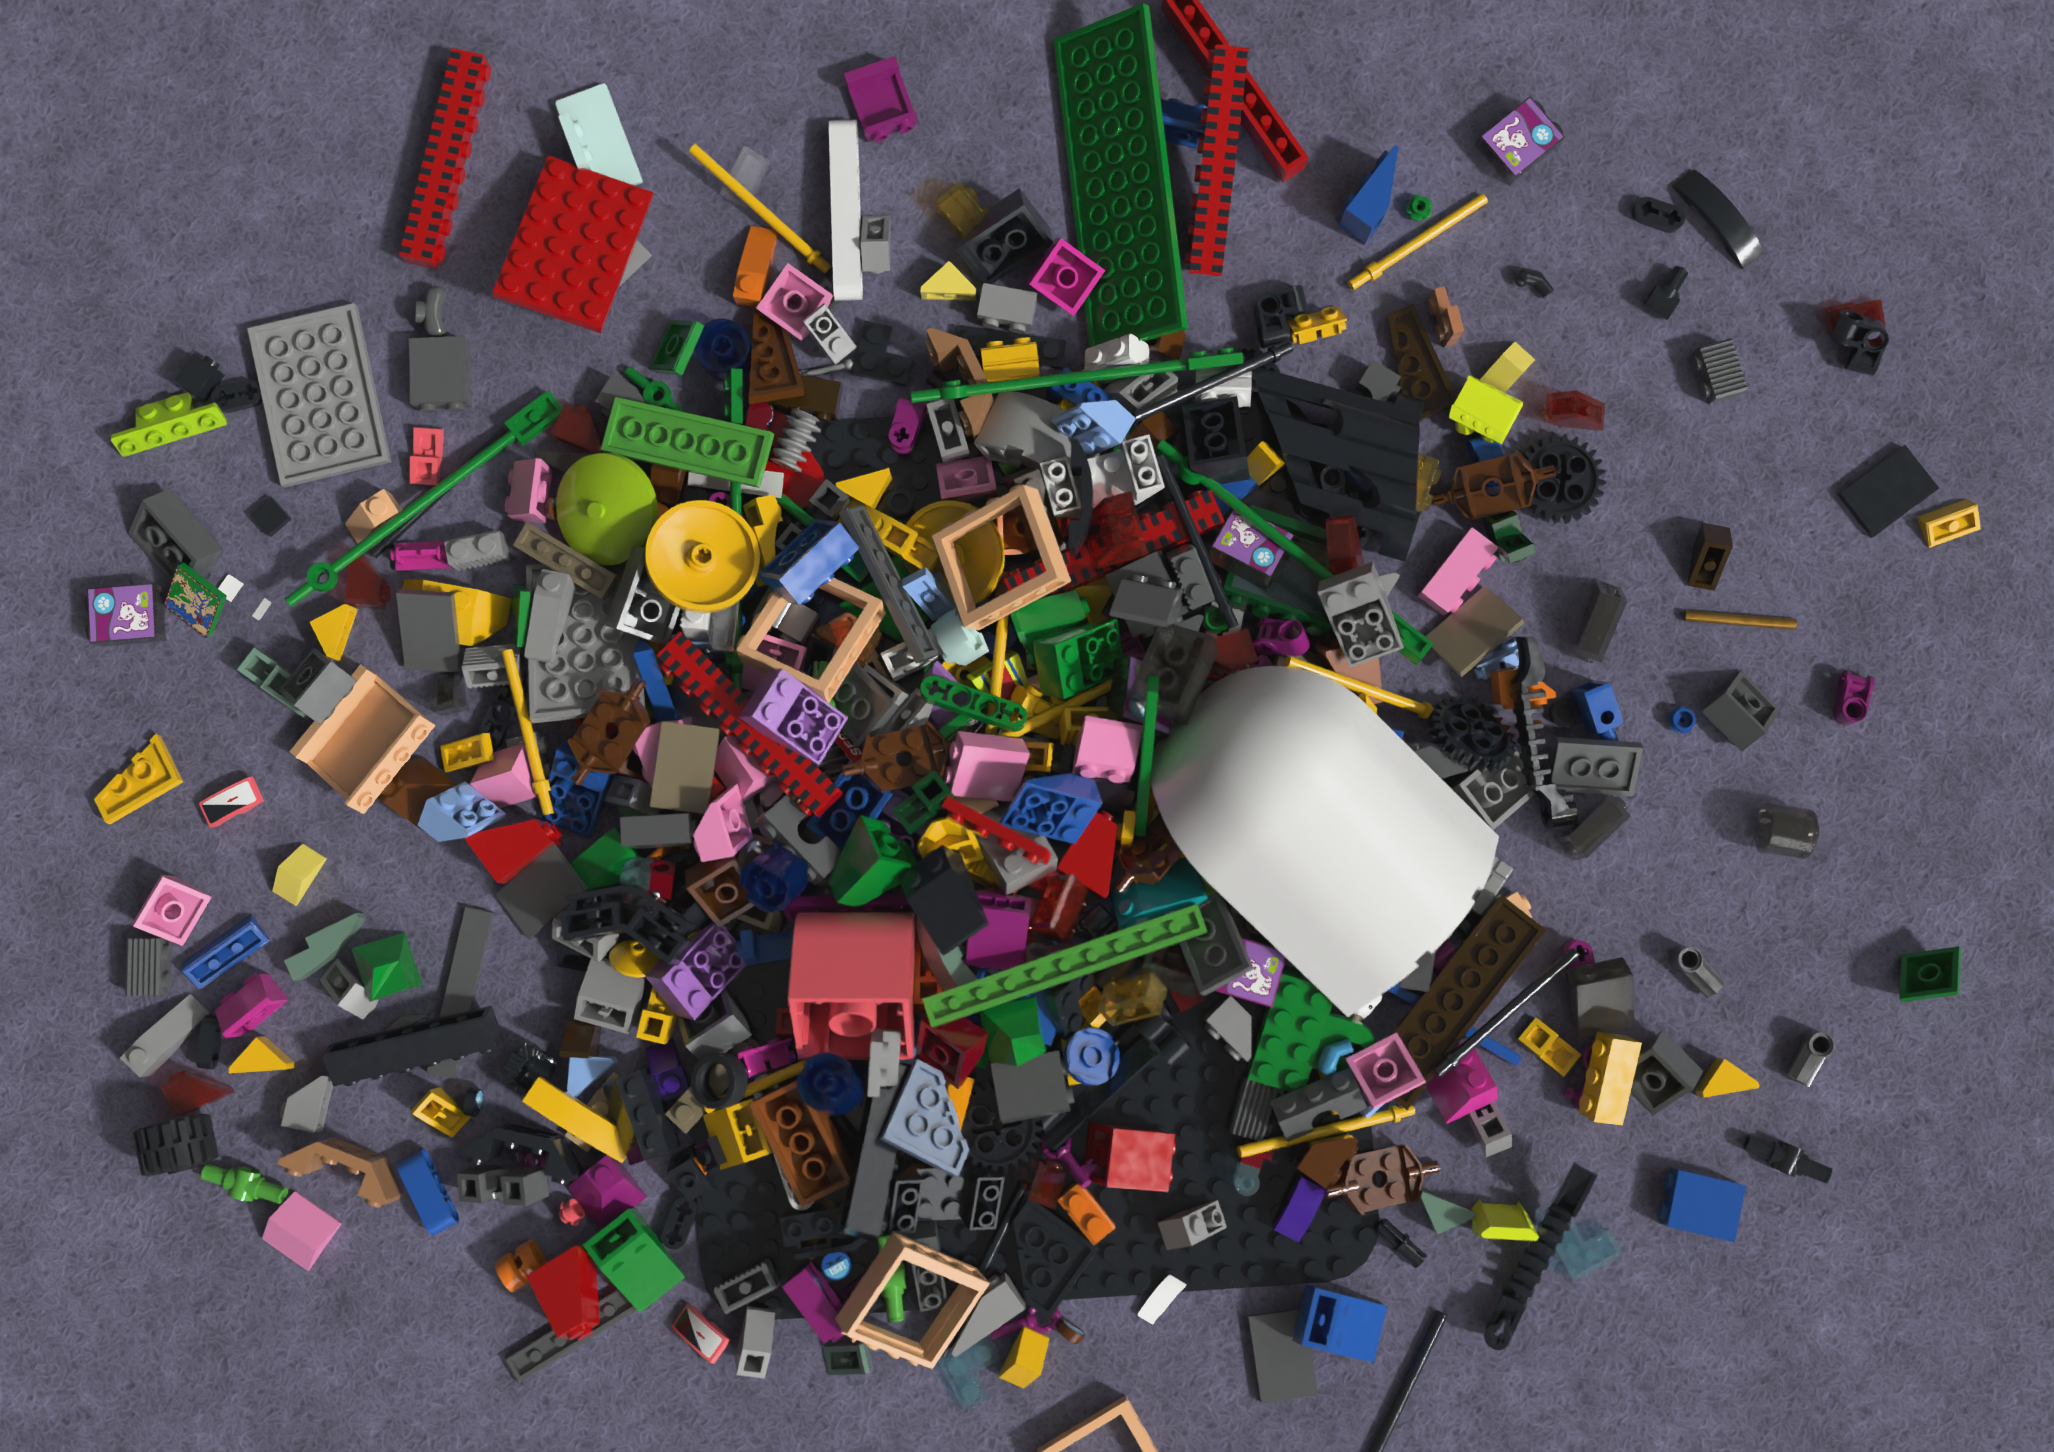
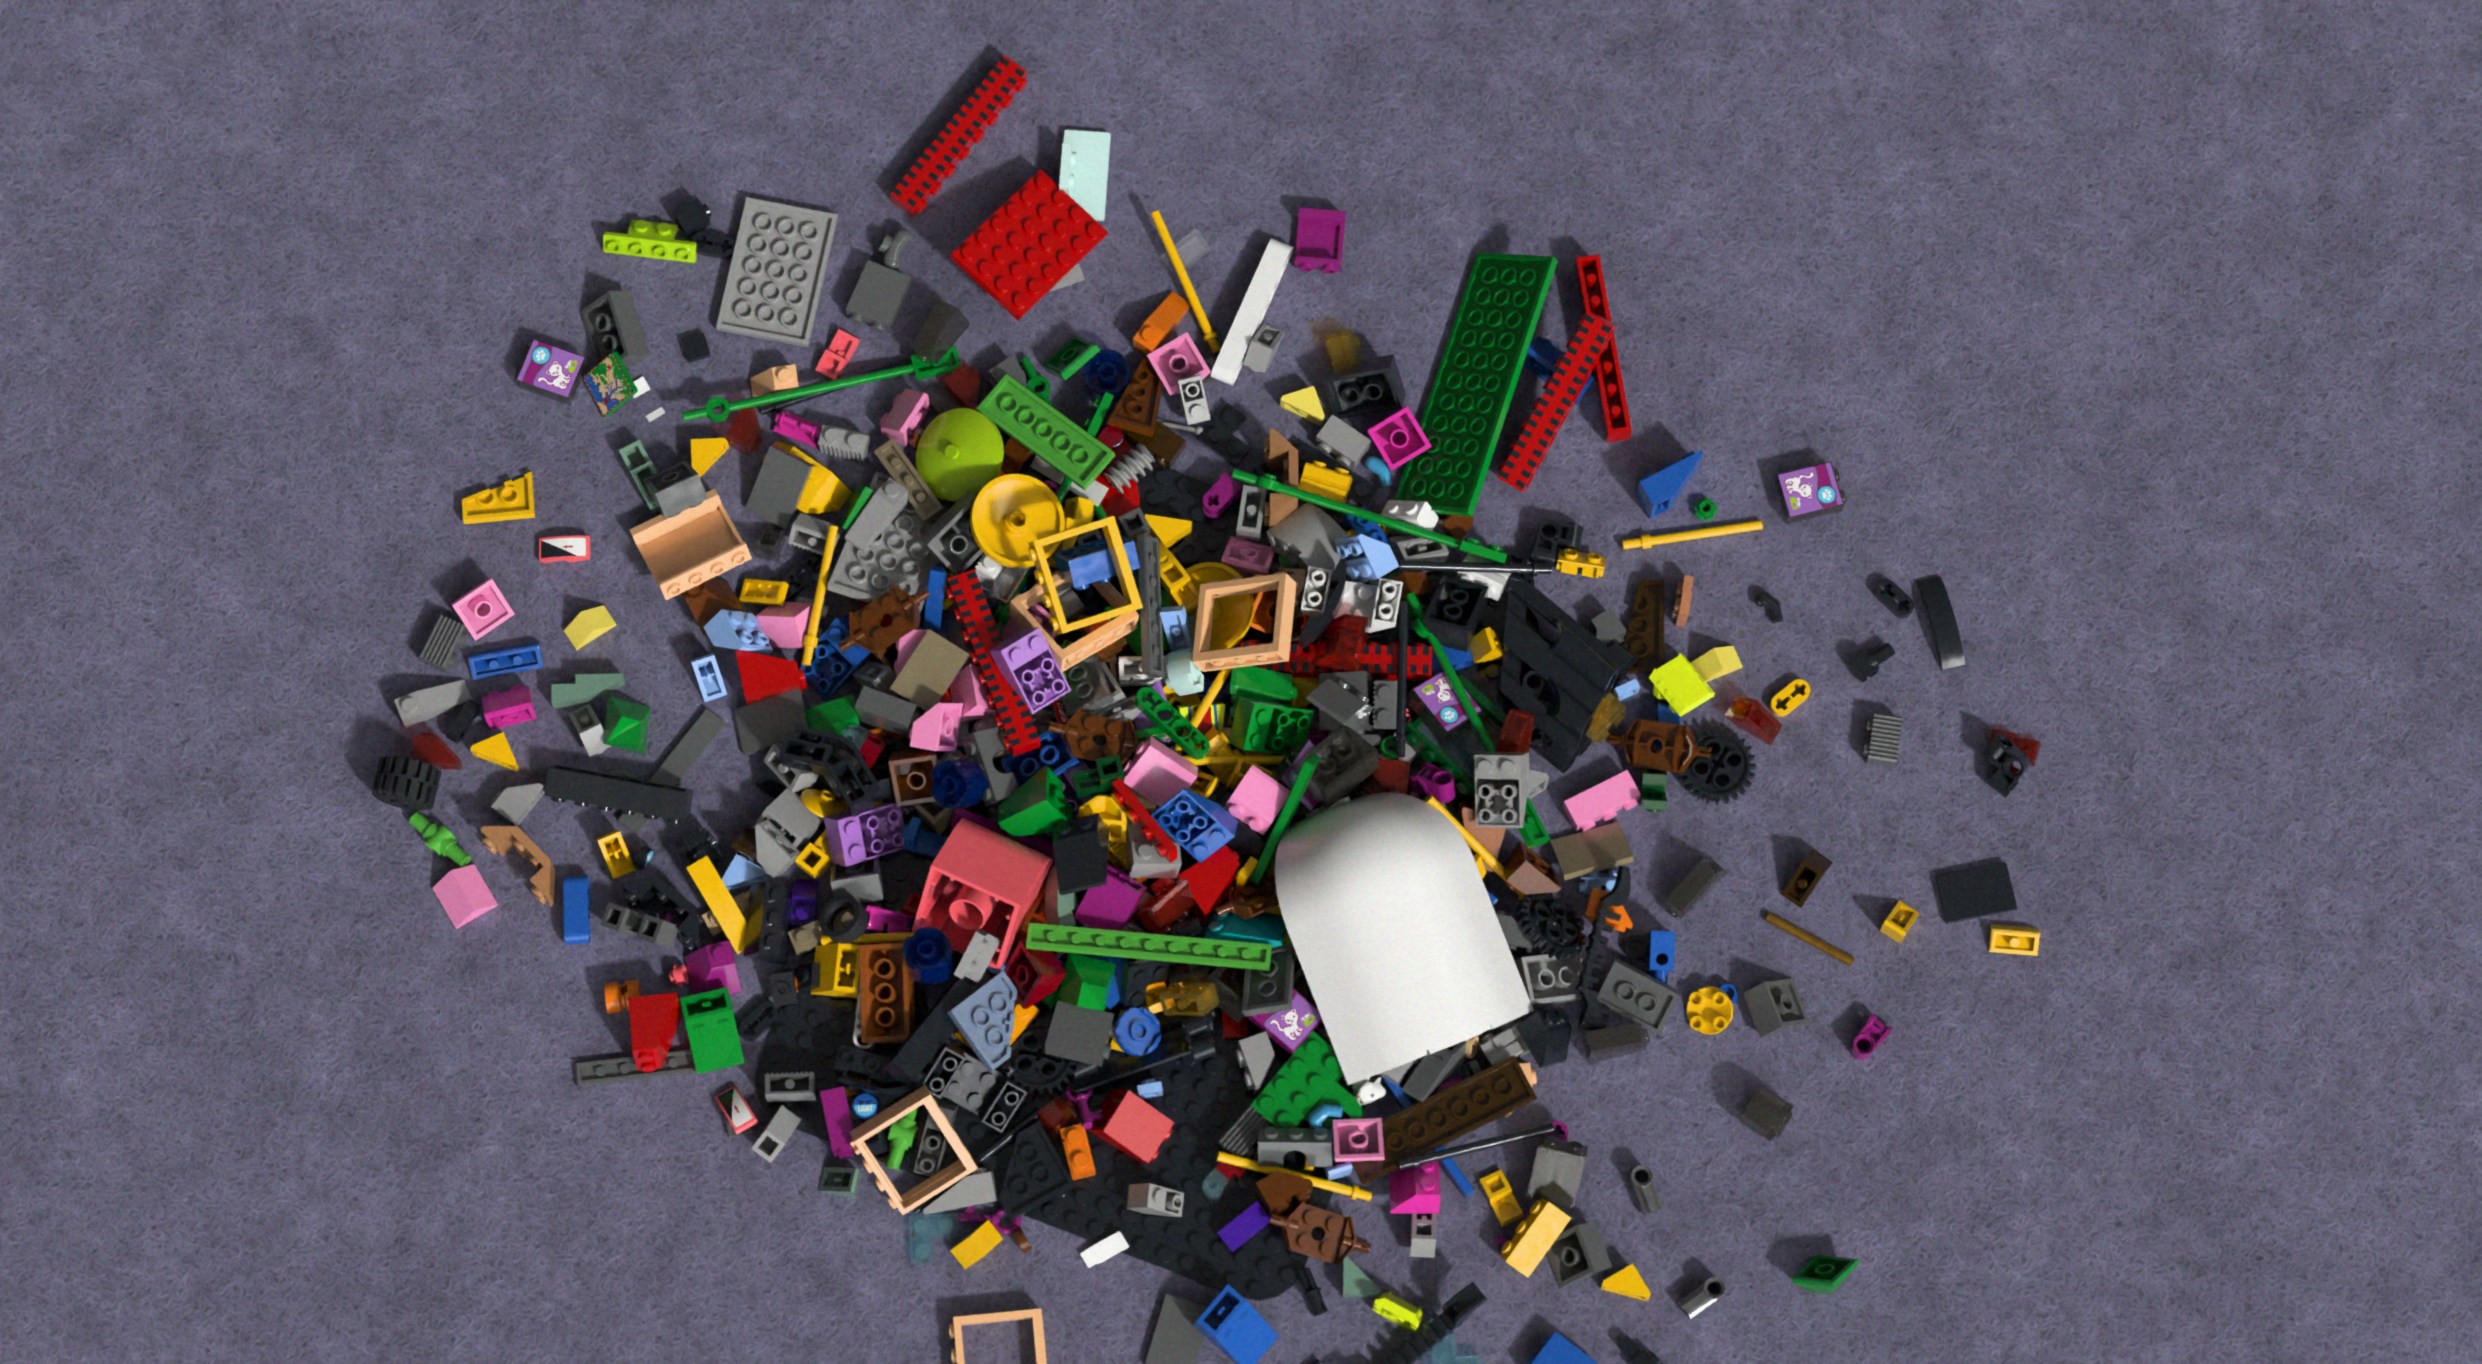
camera: 20 degrees right, 10 degrees down
(451, 872) = (708, 677): none -> light blue slope
(522, 383) = (939, 332): none -> clear smoke slope
(607, 1035) = (773, 849): none -> light grey slope
(836, 554) = (1121, 564): none -> yellow window
(1059, 318) = (1380, 468): none -> dark azure arm
(1130, 1106) = (1149, 1089): none -> light blue plate
(1423, 686) = (1530, 872): none -> reddish brown slope
(1428, 438) = (1626, 689): none -> light blue plate
(1522, 854) = (1547, 1036): none -> black slope
(1605, 374) = (1793, 701): none -> yellow beam
(1674, 745) = (1709, 1010): none -> yellow dish
(1826, 559) = (1899, 921): none -> yellow slope

